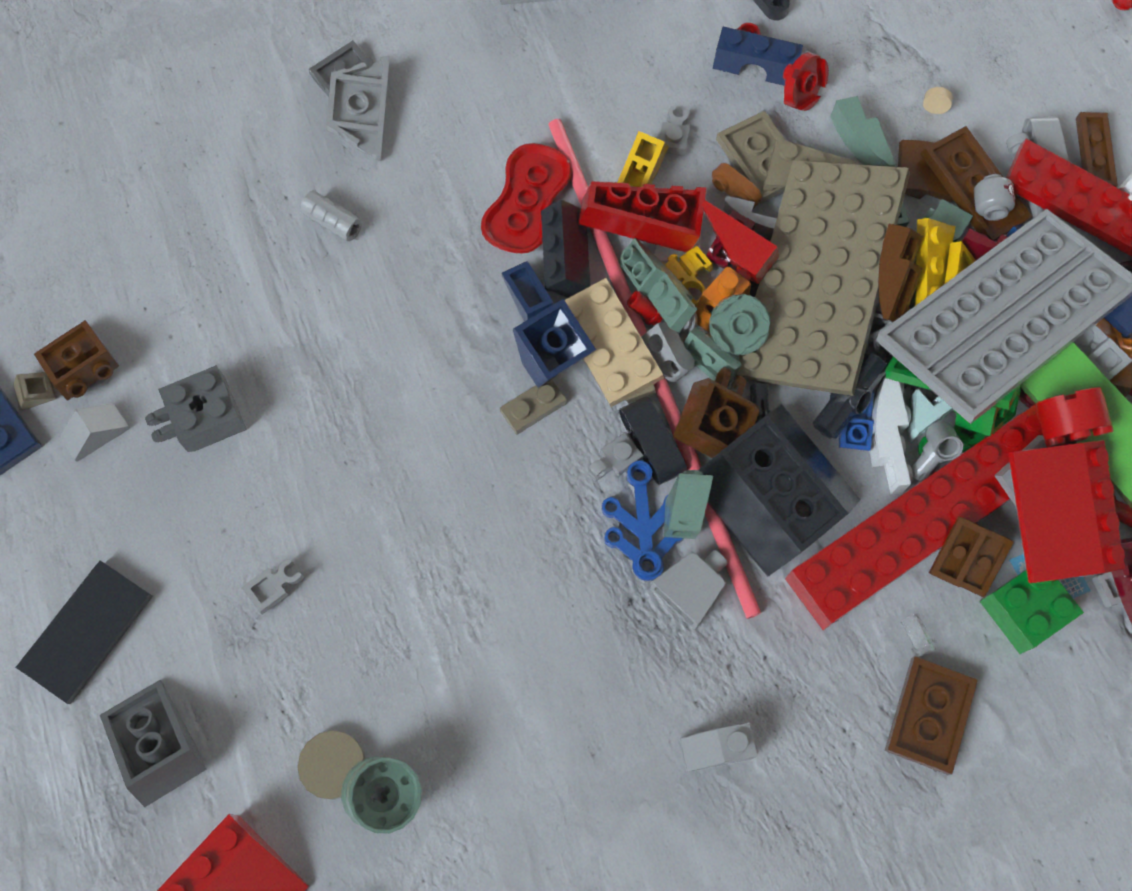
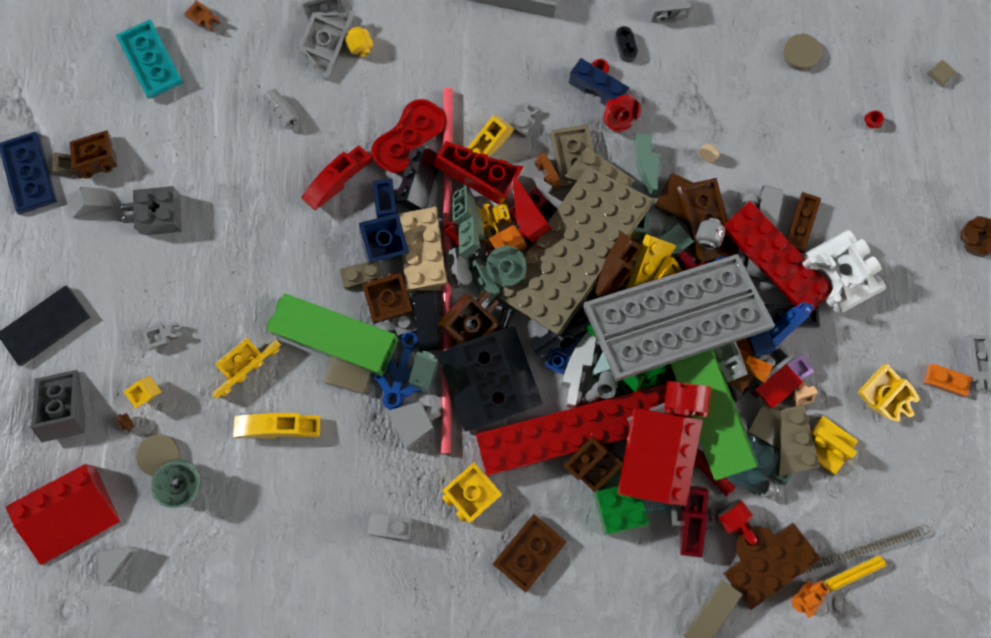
camera: 20 degrees right, 5 degrees up
(113, 205) = (149, 59): none -> teal plate
(167, 124) = (201, 15): none -> dark orange plate
(264, 732) = (125, 422): none -> reddish brown plate
(277, 676) = (142, 391): none -> yellow brick
(407, 584) = (240, 361): none -> yellow bracket
(408, 94) = (359, 41): none -> yellow head
(444, 283) = (334, 175): none -> red slope
(494, 658) = (276, 425): none -> yellow slope
(528, 500) = (332, 334): none -> bright green brick
(570, 541) = (347, 376): none -> dark tan slope
(585, 424) = (387, 297): none -> reddish brown plate
(816, 659) = (470, 493): none -> yellow plate

